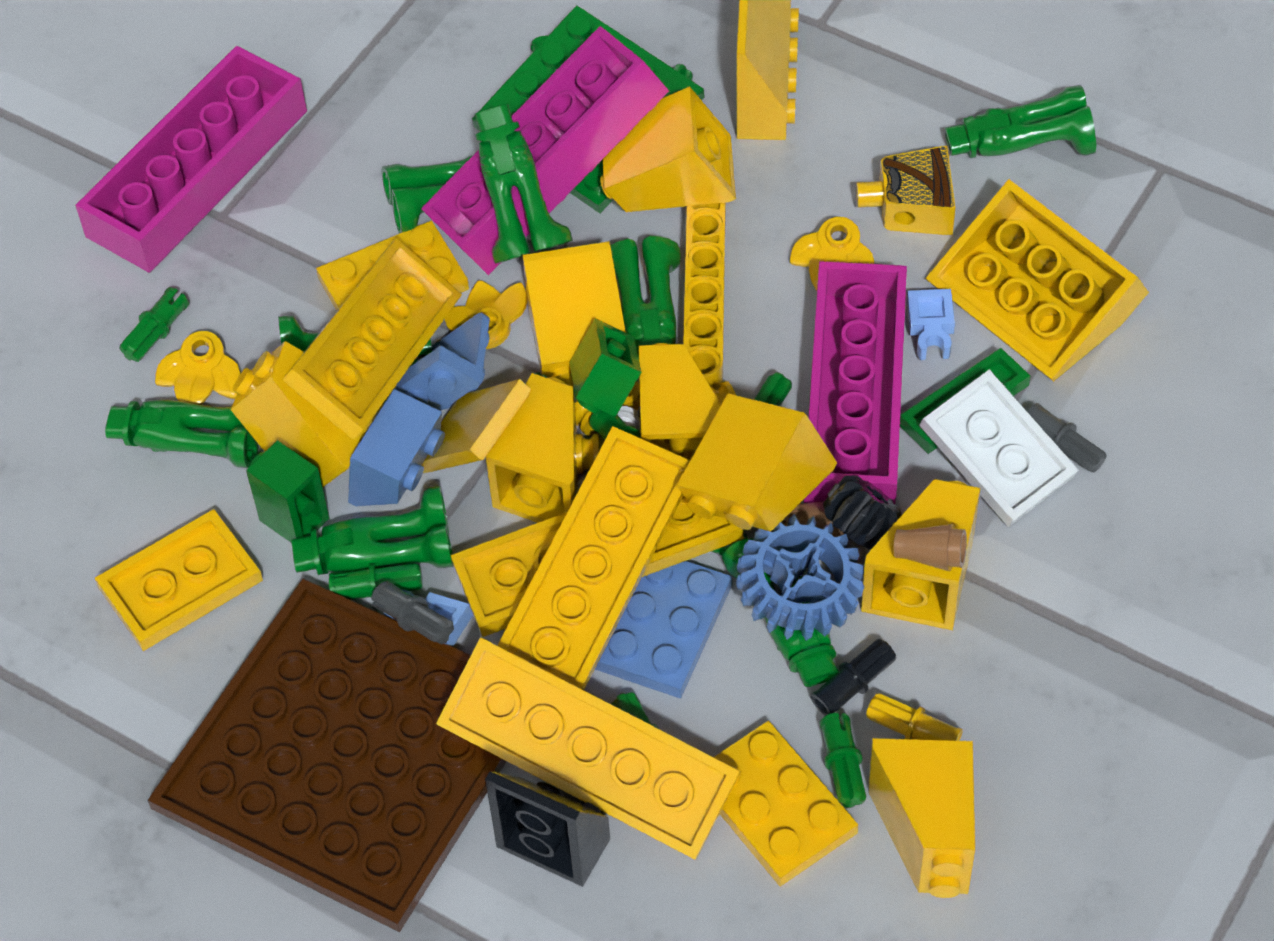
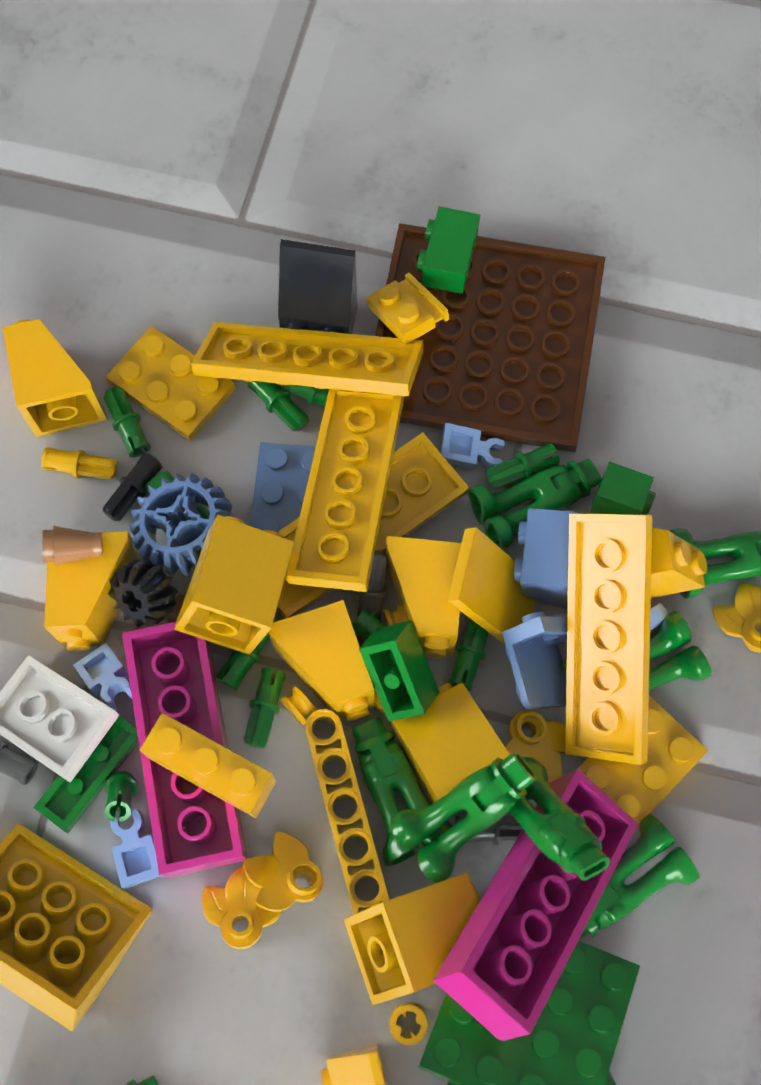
camera: 160 degrees right, 15 degrees up
(178, 579) = (671, 427): yellow plate -> none
(349, 841) = (449, 250): none -> green brick
(411, 612) = (477, 430): dark grey axle -> none
(438, 775) = (407, 308): none -> yellow plate
(572, 212) = (485, 798): none -> green piece
(788, 273) = (278, 873): none -> yellow plate
(831, 321) = (208, 765): none -> yellow brick
(913, 192) = (180, 1005): torso -> none
(924, 466) = (104, 674): none -> light blue plate
(935, 363) = (120, 789): none -> green pin

